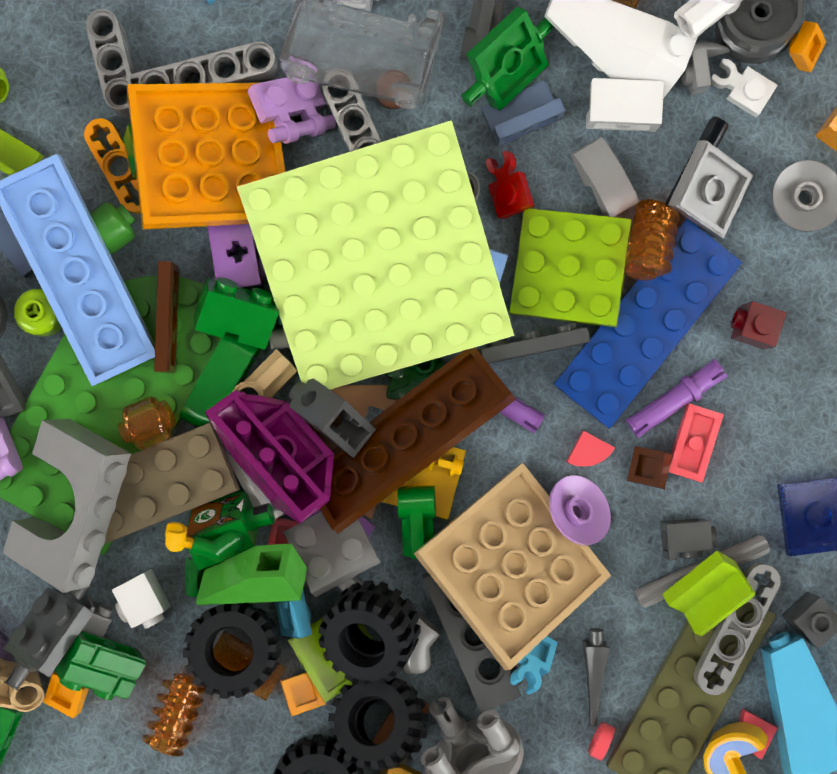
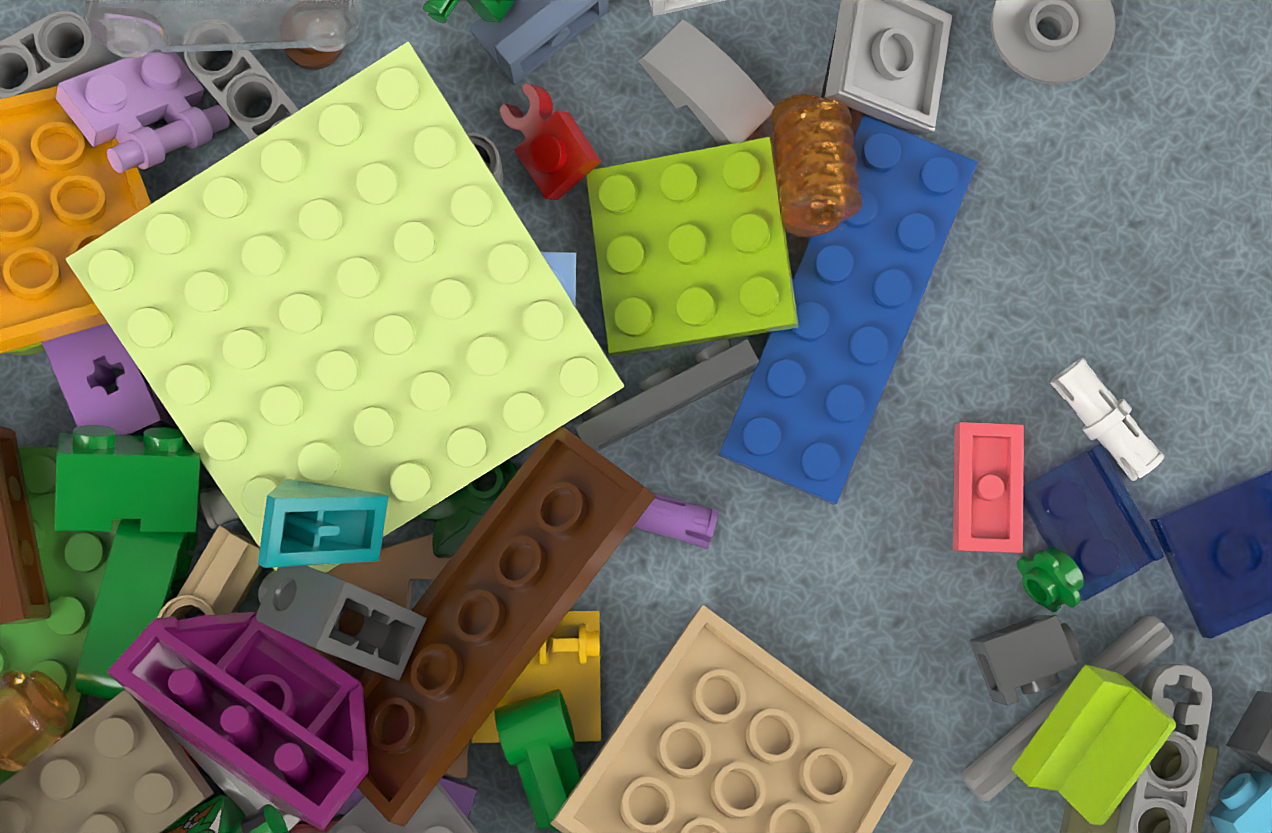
camera: 20 degrees left, 5 degrees down
(336, 366) = (321, 525): none -> teal slope
(580, 510) = (825, 661): lavender dish -> none
(589, 451) = (812, 552): coral tile -> none
(649, 467) = (924, 551): reddish brown plate -> none
(687, 390) = (950, 401): medium lavender pin -> none
(713, 501) = (1051, 579): none -> green plate
(744, 476) = (1092, 520): none -> clear blue plate
(757, 325) = (1035, 258): dark red brick -> none
(770, 423) = (1107, 419): none -> white pin

